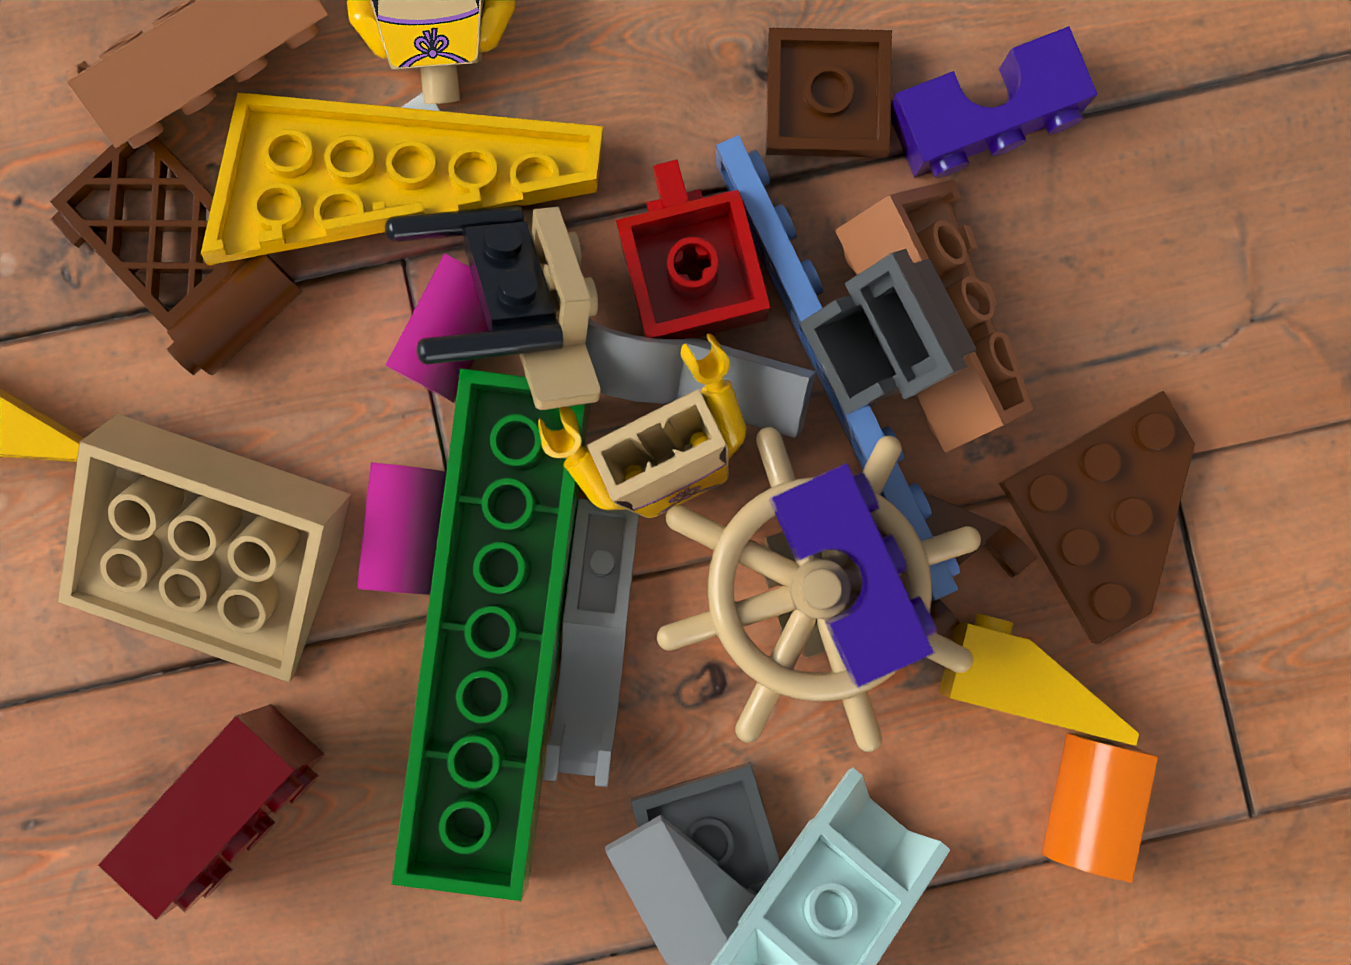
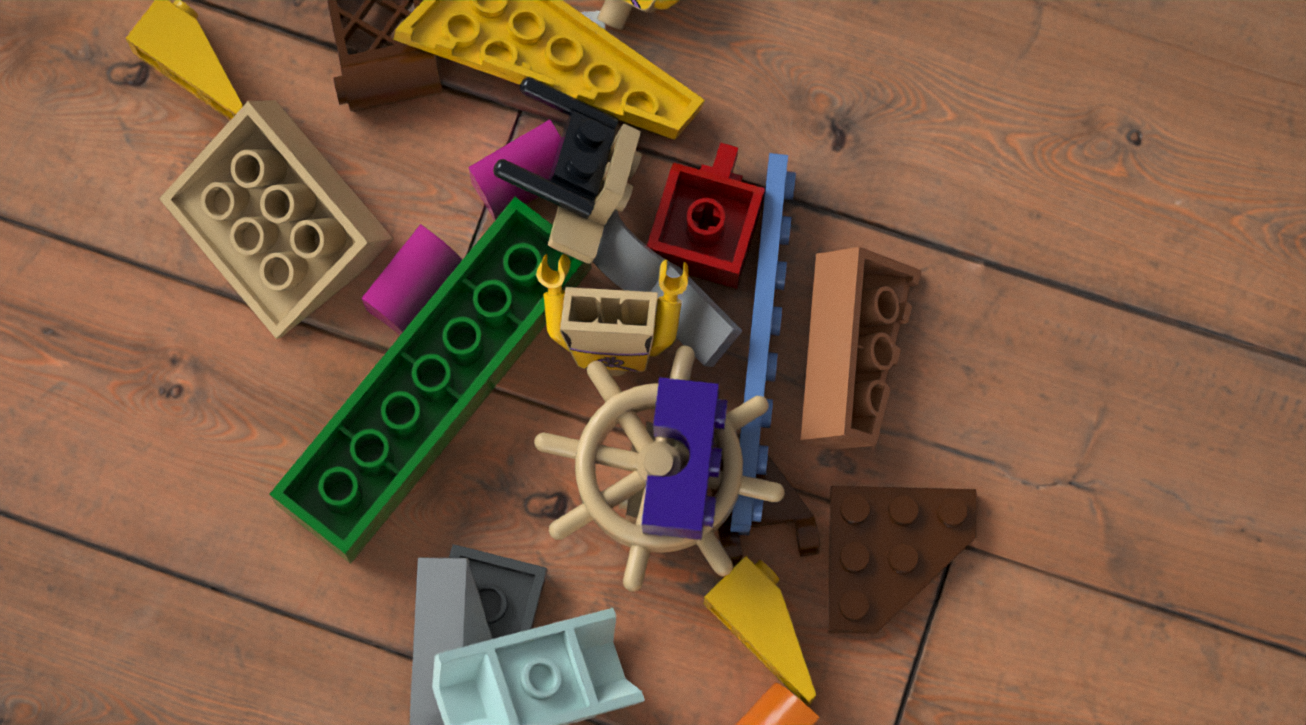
camera: 30 degrees right, 10 degrees down
(214, 812) = (184, 384): dark red brick -> none
(592, 643) = (494, 425): light grey piece -> none
(828, 92) = (868, 164): reddish brown plate -> none
(889, 333) = (803, 332): dark grey plate -> none
(1044, 89) = (932, 235): dark purple arch -> none

